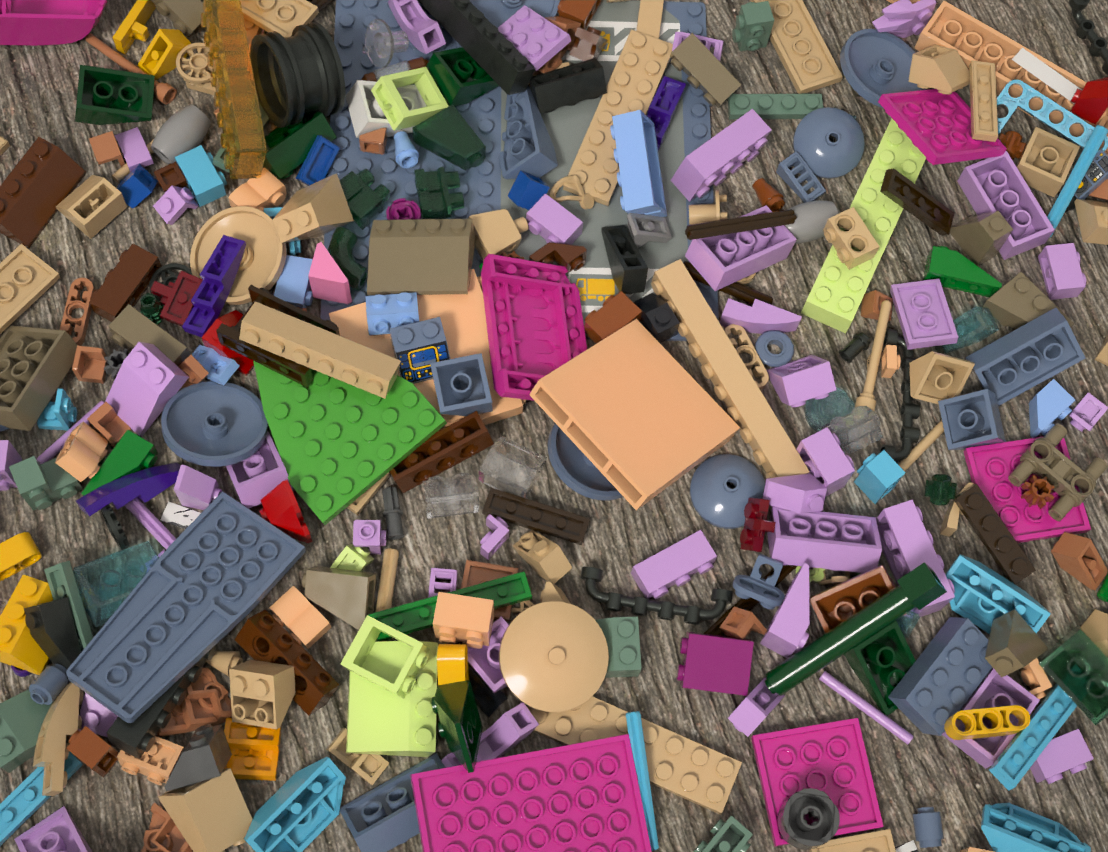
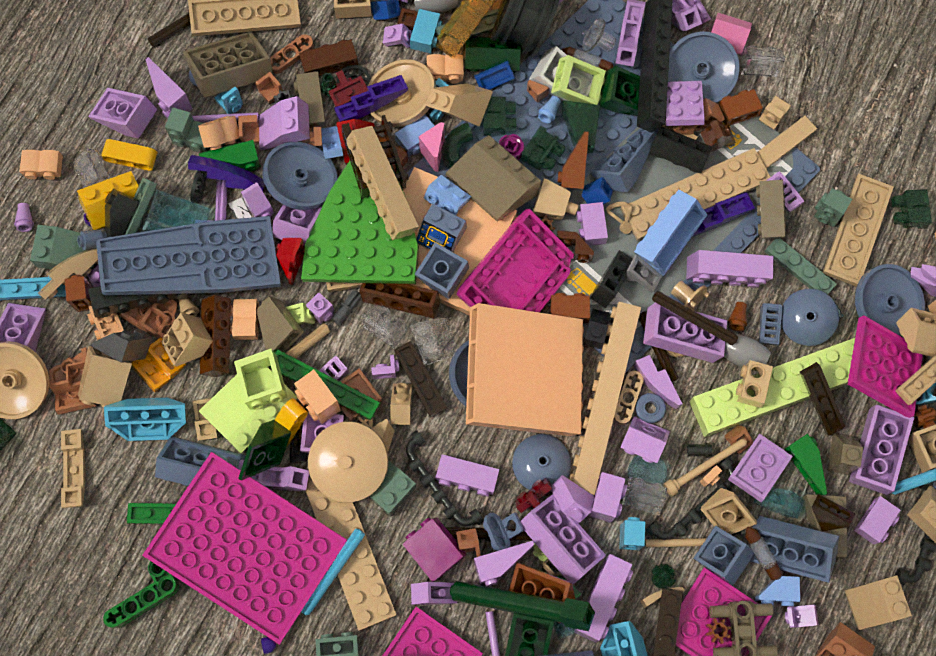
camera: 50 degrees right, 5 degrees up
(486, 181) = (574, 167): none -> dark orange slope
(1006, 386) = (763, 553): none -> piece
(1028, 296) = (831, 515): none -> dark brown slope

